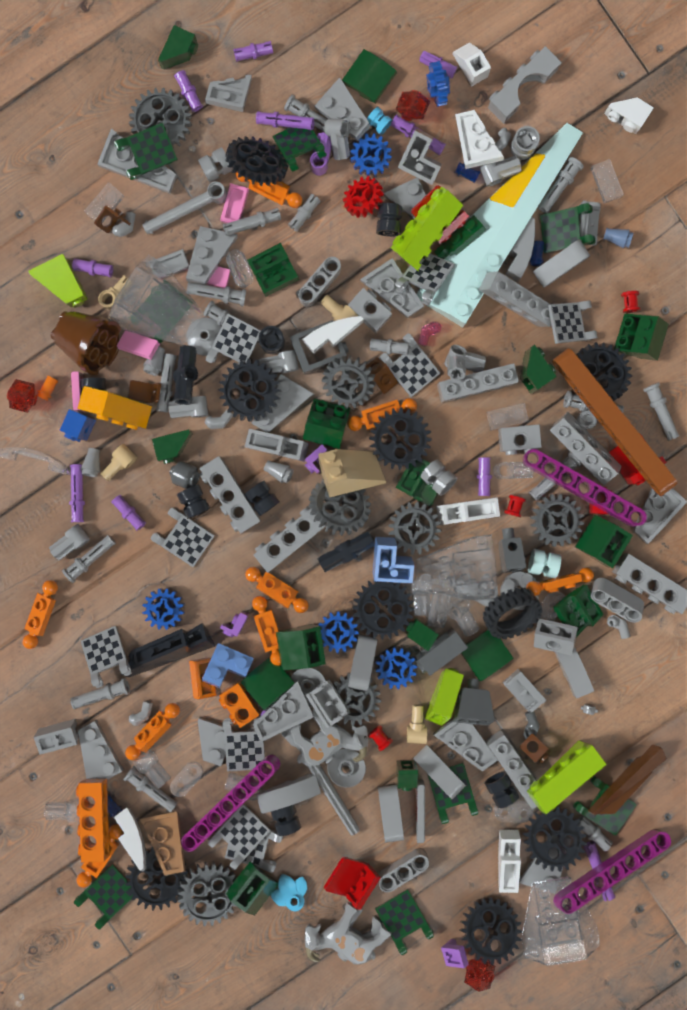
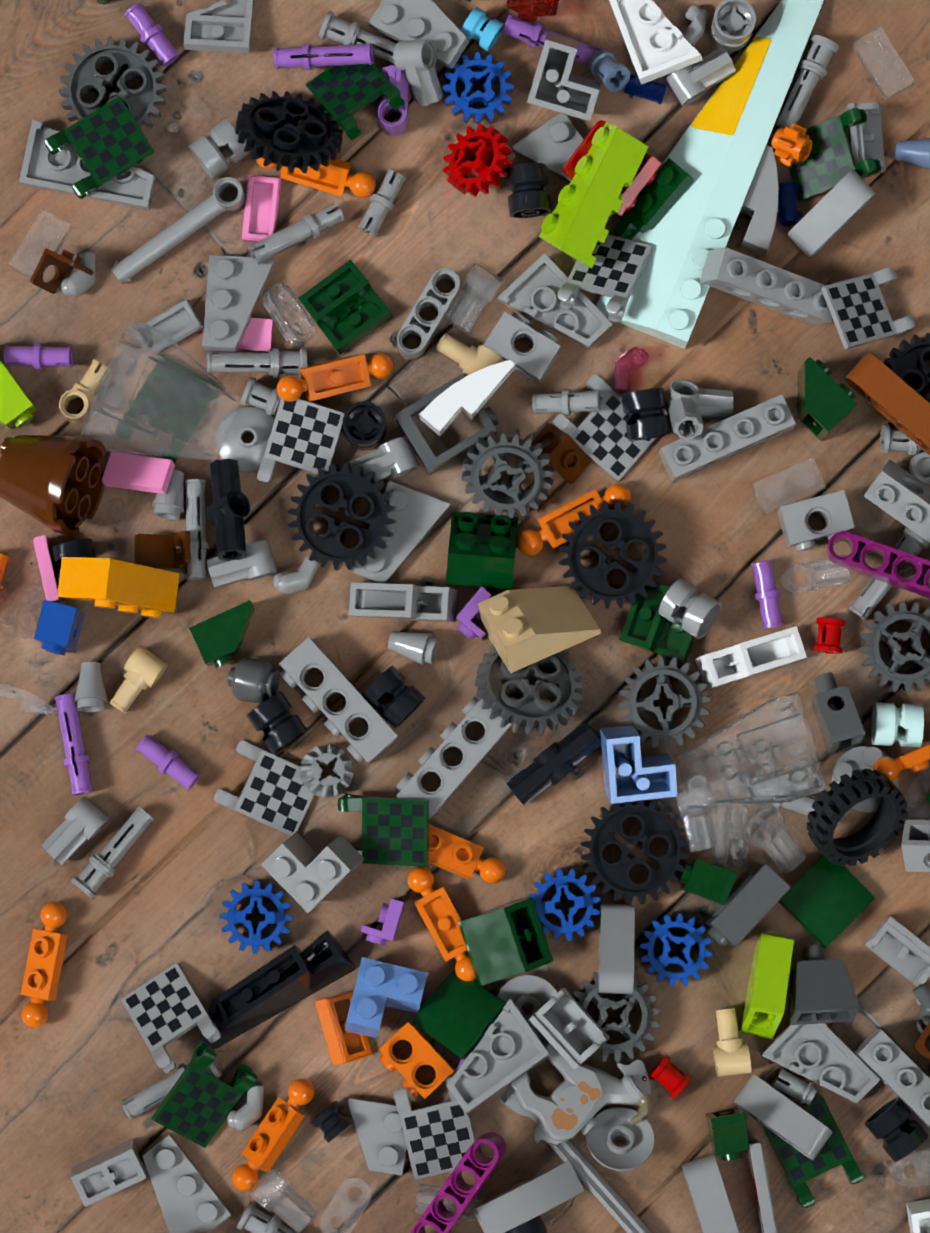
camera: 10 degrees left, 5 degrees down
(114, 706) = (201, 1100): none -> dark green flag
(186, 730) = (332, 1121): none -> black wheel
(196, 590) = (310, 875): none -> light grey brick
(207, 533) = (329, 786): none -> light grey gear
(247, 573) = (392, 829): none -> dark green flag
(259, 309) = (335, 377): none -> orange plate
(350, 273) = (477, 291): none -> clear piece
(433, 361) = (645, 414): none -> black wheel
(447, 156) = (604, 66): none -> sand blue bush
(449, 756) = (798, 1088): none -> light grey pin
(546, 219) = (791, 145): none -> orange gear

